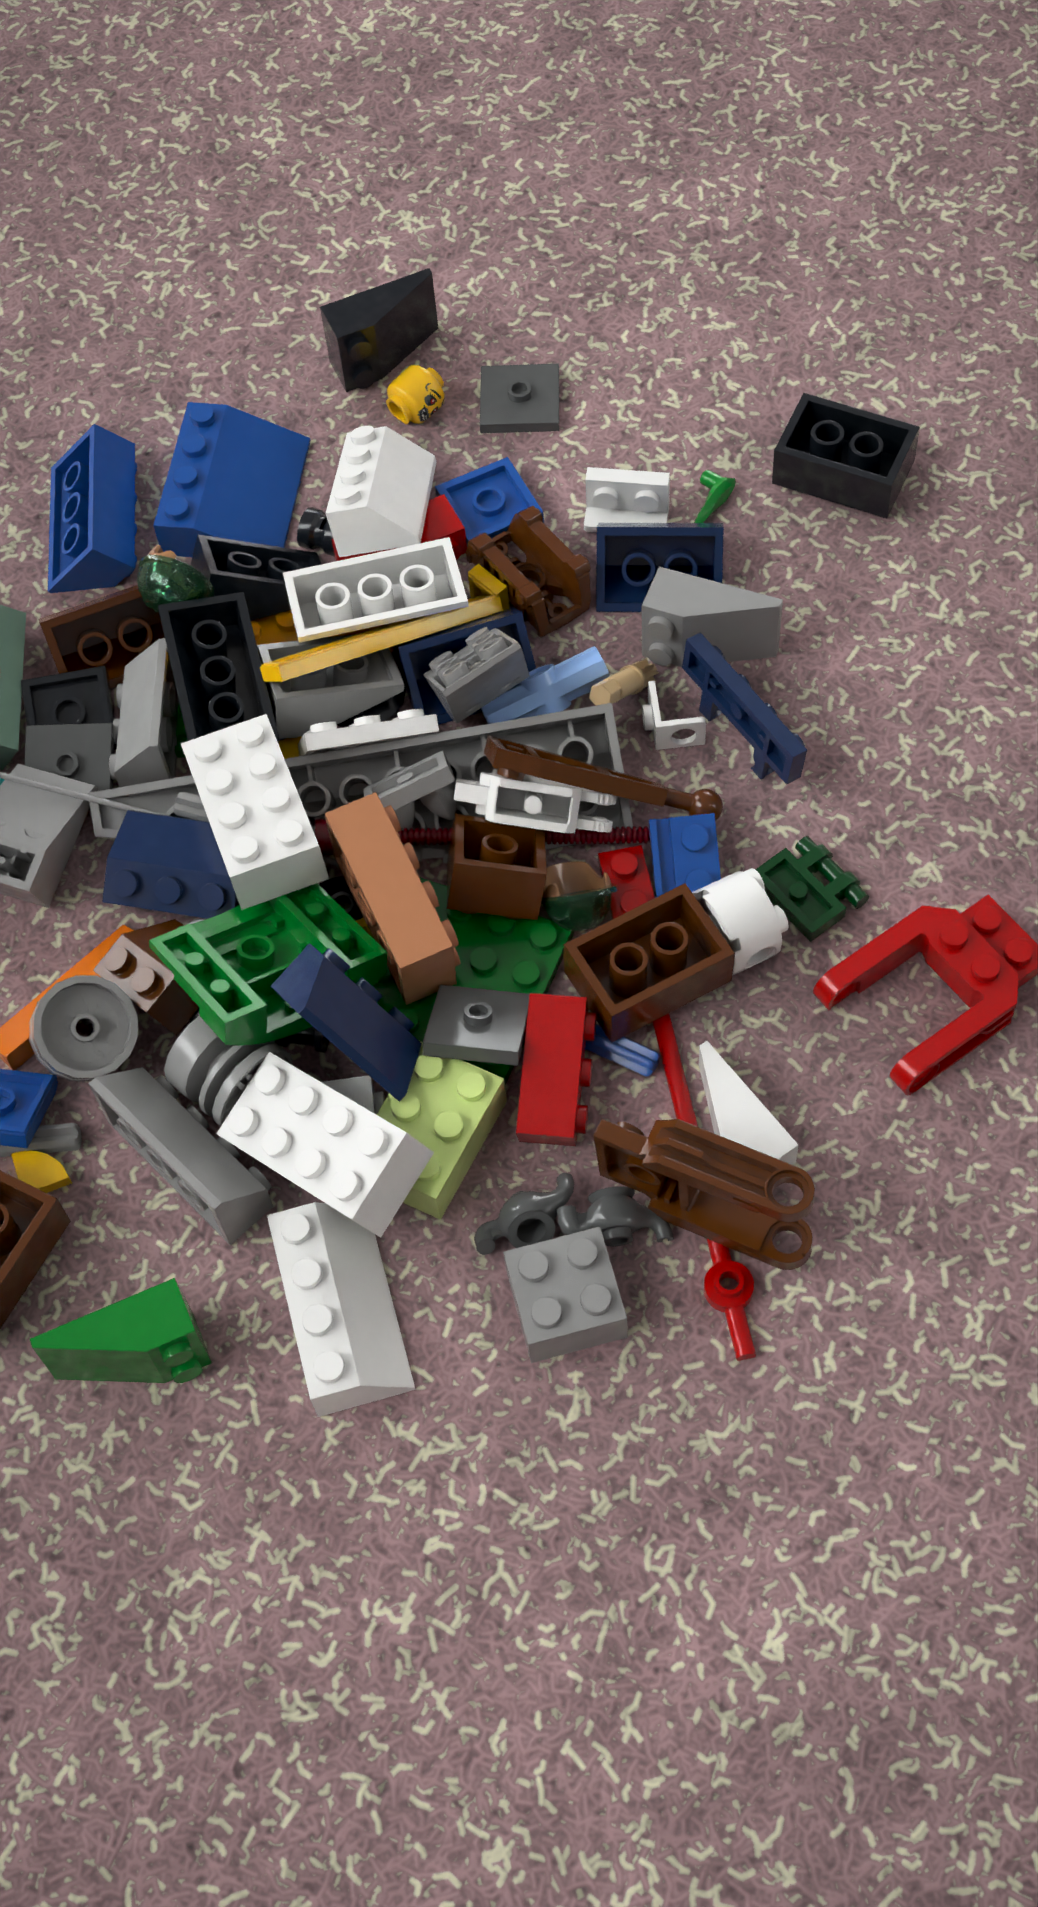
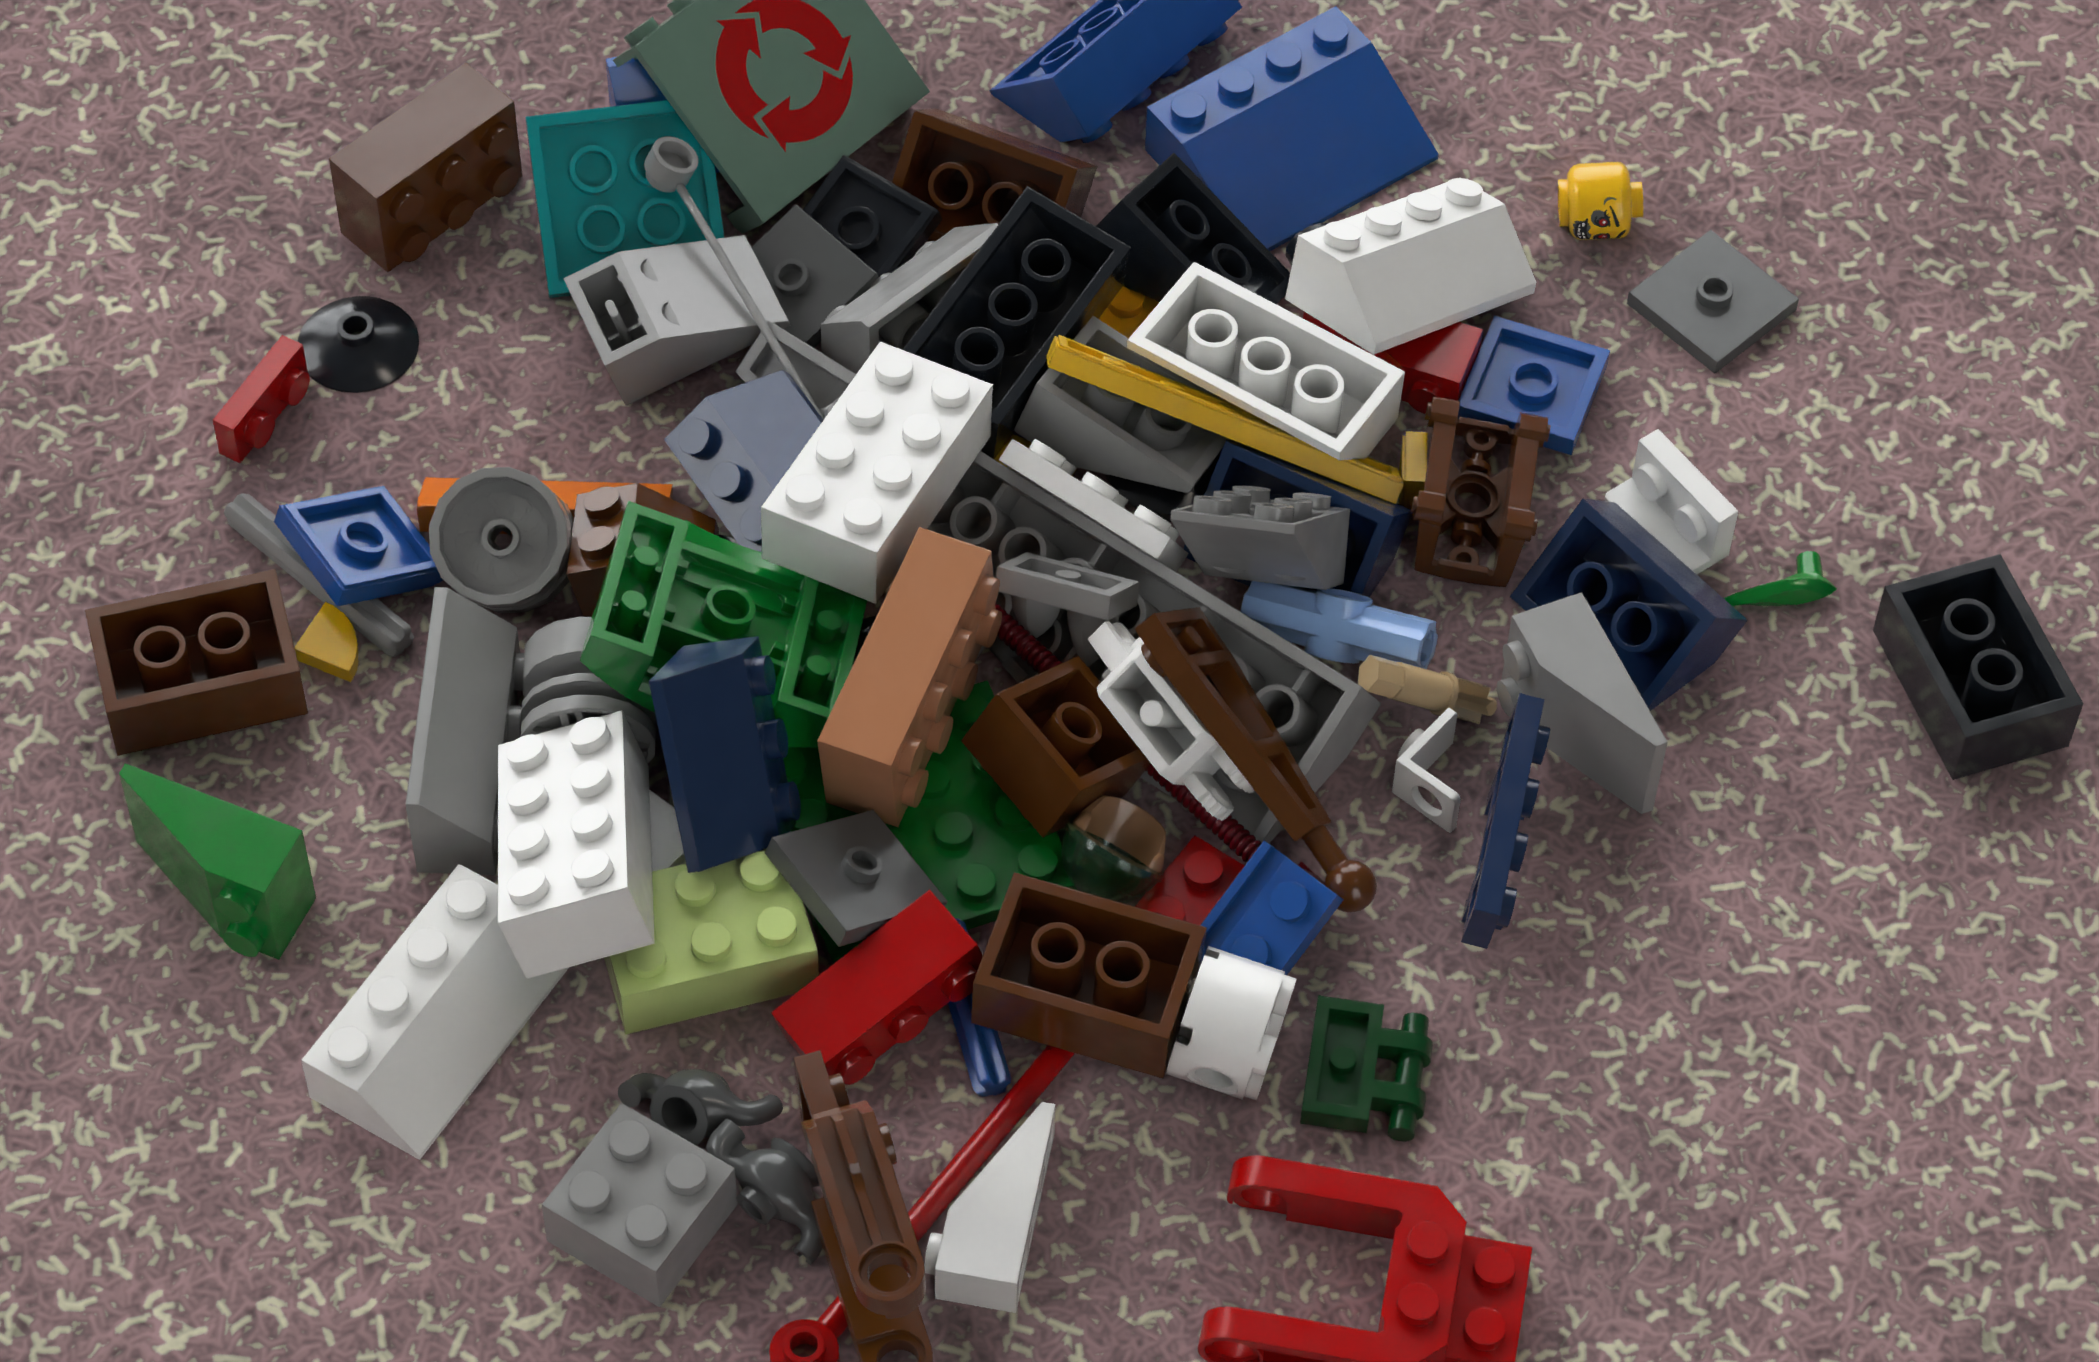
camera: 40 degrees right, 5 degrees down
(168, 580) = (1072, 170): clear green piece -> none
(379, 328) = (1635, 95): black slope -> none

